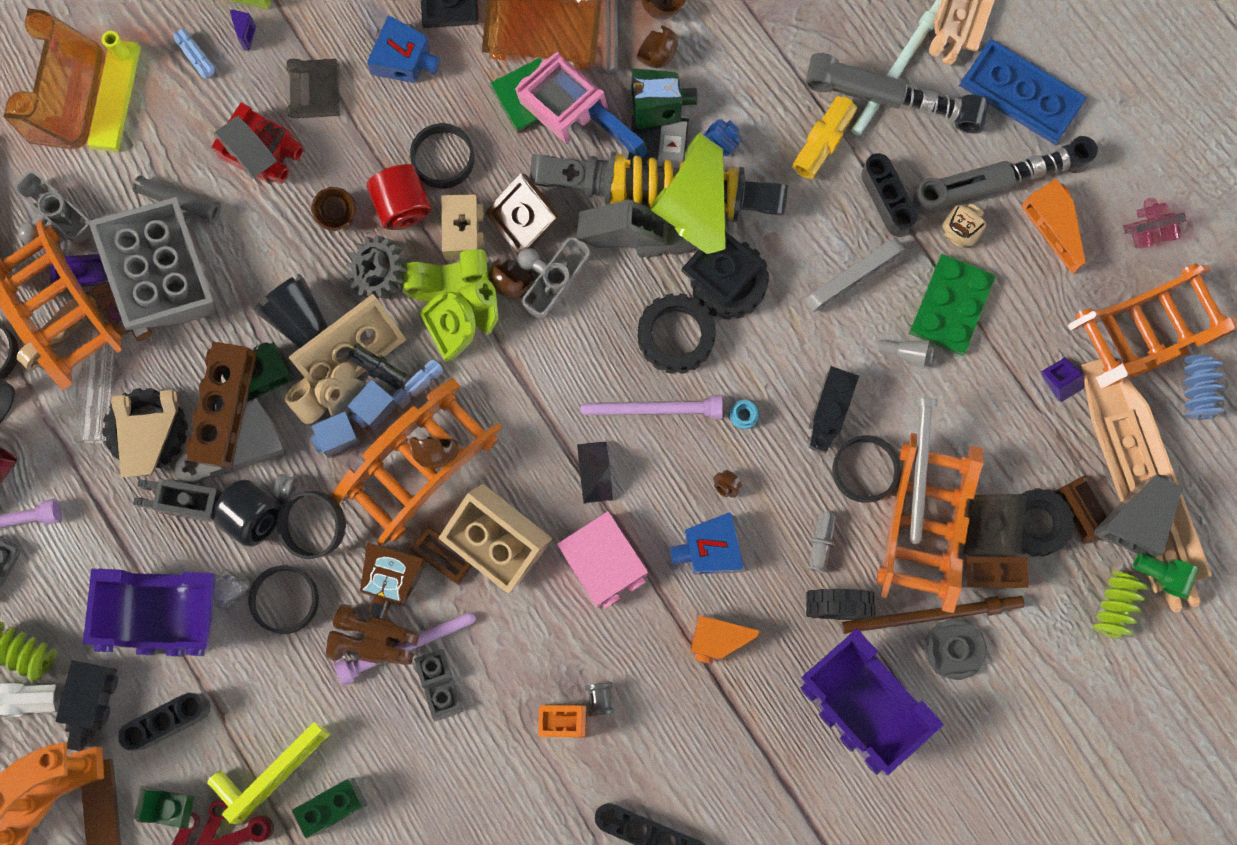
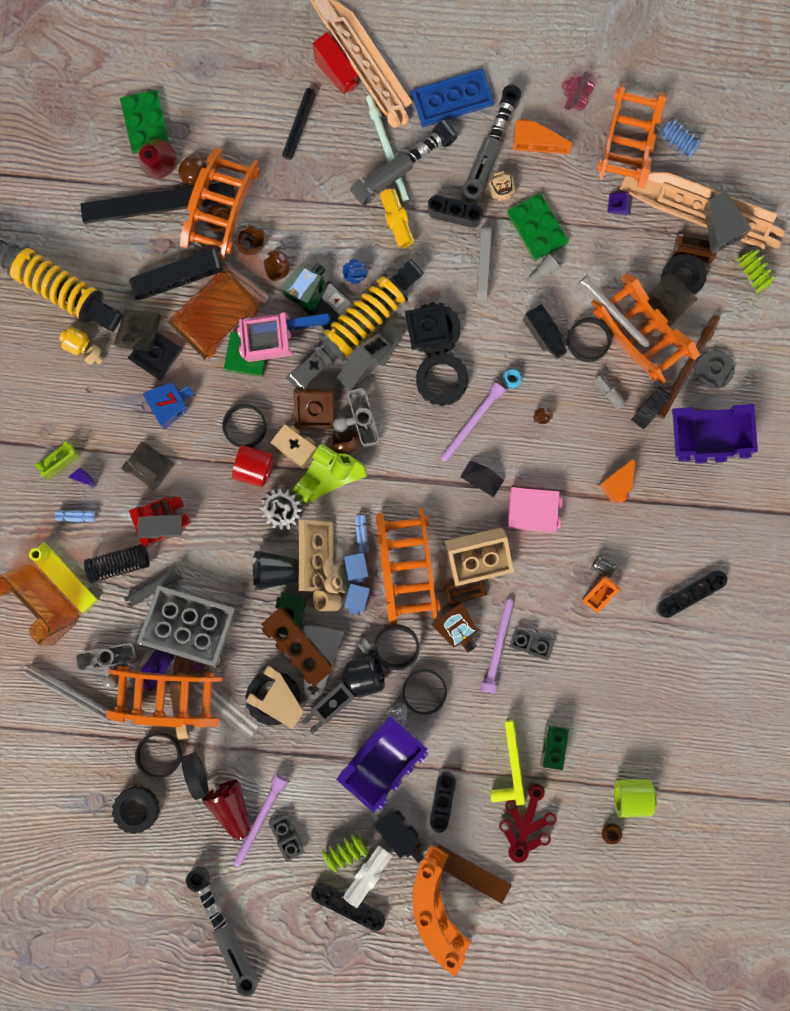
camera: 50 degrees left, 5 degrees up
(163, 807) = (487, 834): dark green slope -> none
(193, 151) = (90, 569): none -> black piece
(333, 208) = (229, 506): reddish brown hair -> none
(377, 366) = (338, 548): black pin -> none
(379, 641) = (488, 657): reddish brown piece -> none
(433, 452) = (414, 551): reddish brown hair -> none
(450, 323) = (344, 492): lime tile -> none
(697, 197) = (383, 309): lime panel -> none
(710, 547) = (569, 450): blue torso -> none
(995, 572) = (694, 317): reddish brown hinge -> none
(1175, 576) = (763, 232): green pin -> none

